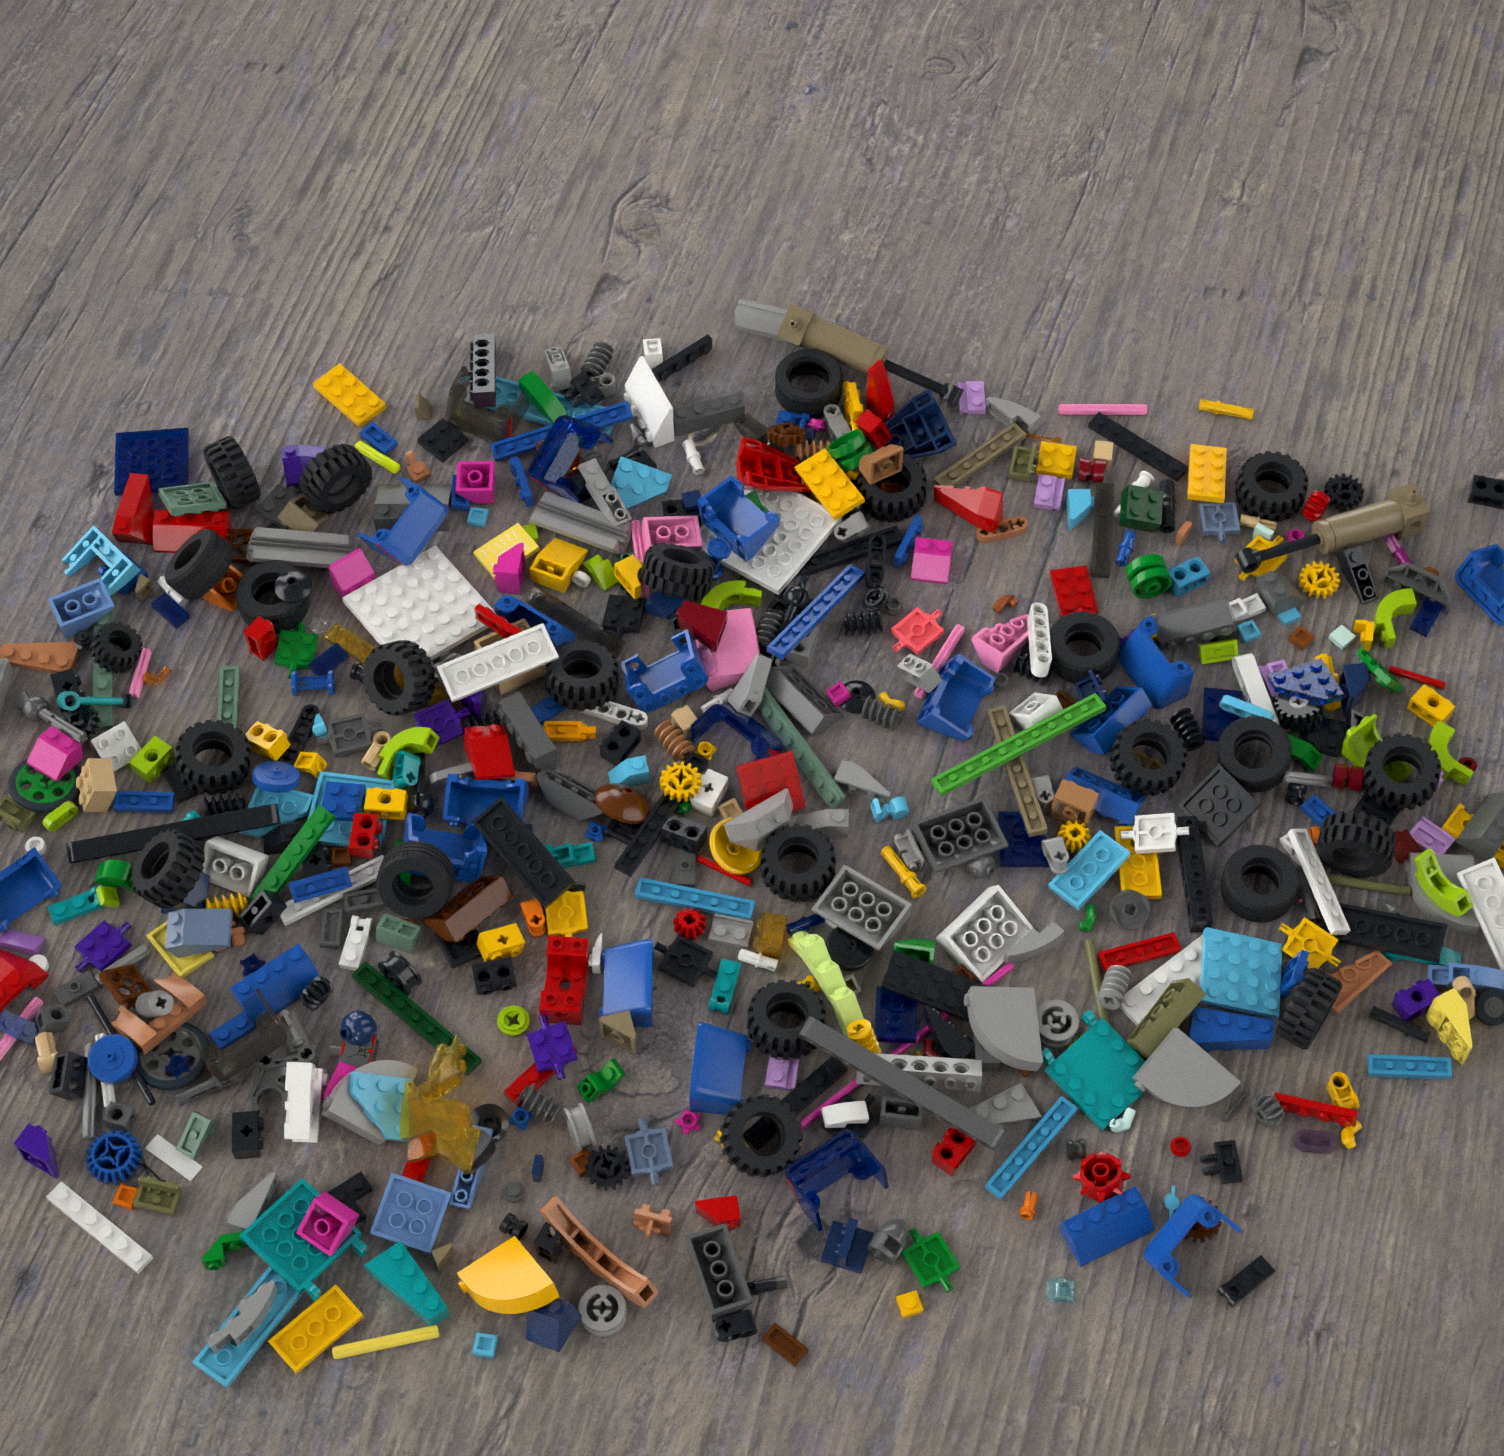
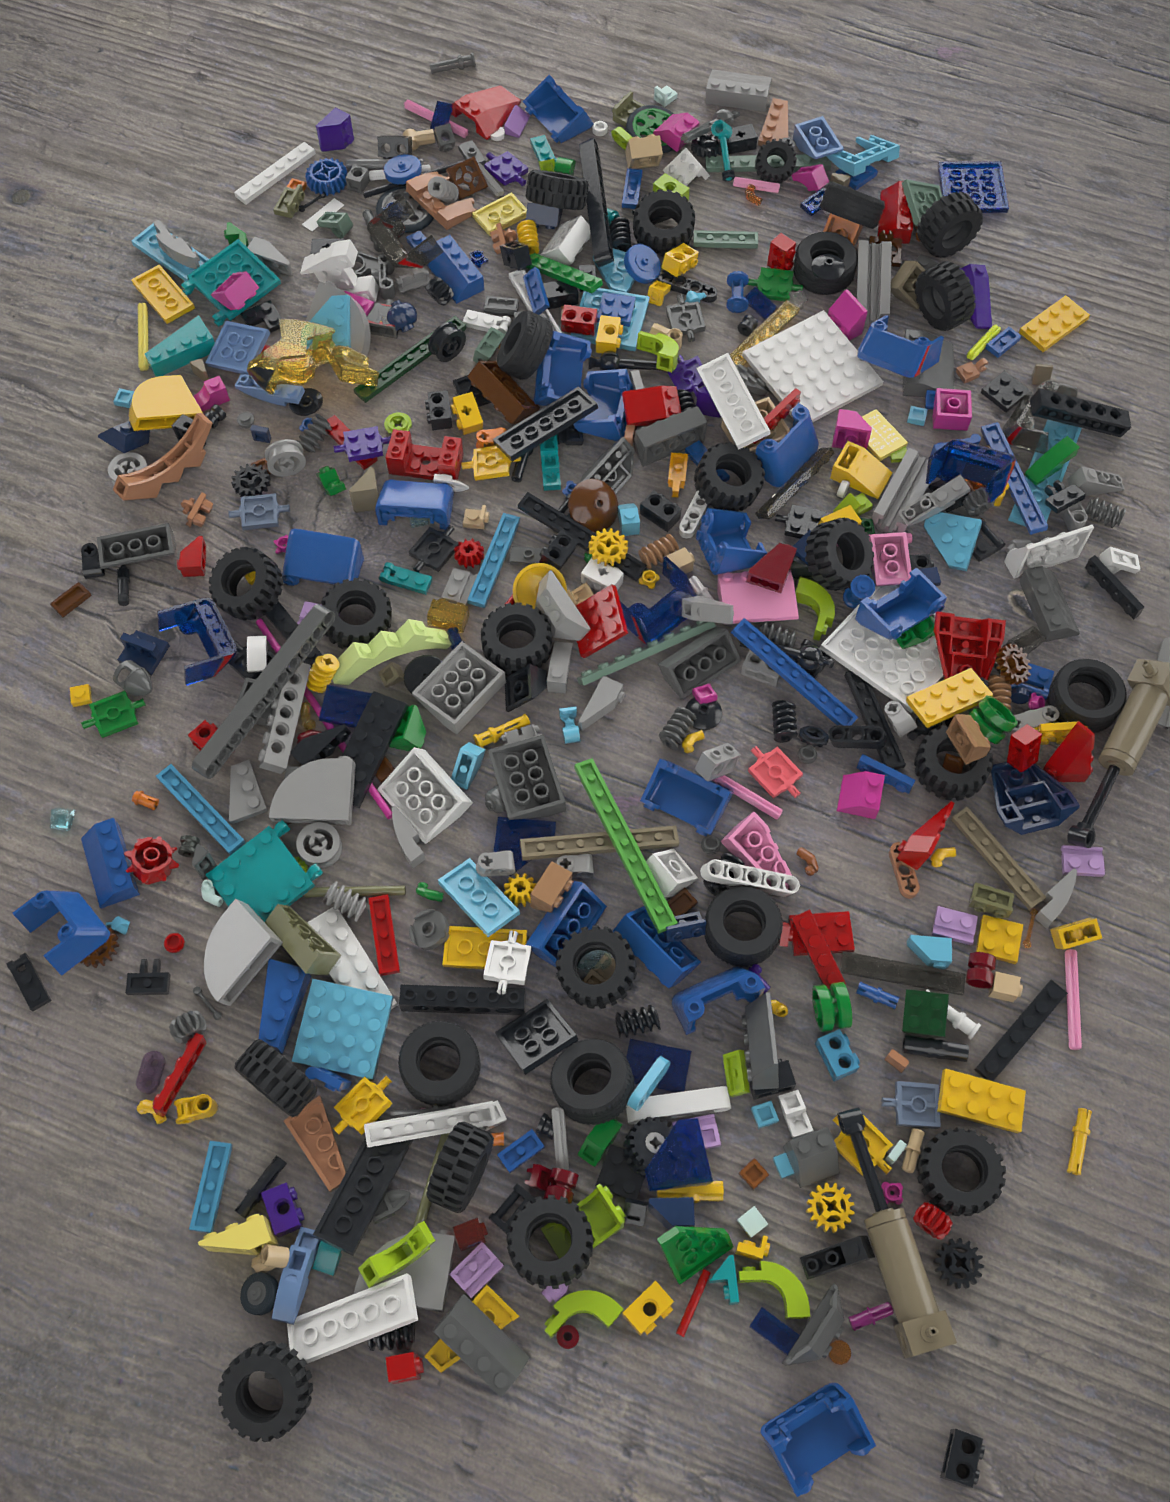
camera: 95 degrees right, 5 degrees up
(135, 512) = (920, 170): red wedge -> none
(136, 612) = (812, 177): none -> dark pink arch
(198, 931) = (501, 211): sand blue slope -> none
(381, 680) = (729, 336): black tyre -> none
(406, 767) = (646, 351): teal piece -> none
(479, 1234) = (212, 393): none -> dark pink arch
(639, 923) = (476, 518): none -> tan bracket
(693, 457) = (990, 590): white pin -> none
(758, 960) = (425, 604): white axle -> none
(854, 851) = (524, 686): none -> black slope
(946, 896) = (467, 764): none -> medium azure slope
(1047, 401) = (1076, 933): none -> yellow brick
(1095, 590) = (817, 948): none -> red plate
(1096, 1125) = (202, 861): none -> dark grey slope
(1342, 796) = (539, 1177): none -> dark red tile
(1391, 651) = (727, 1274): none -> teal slope

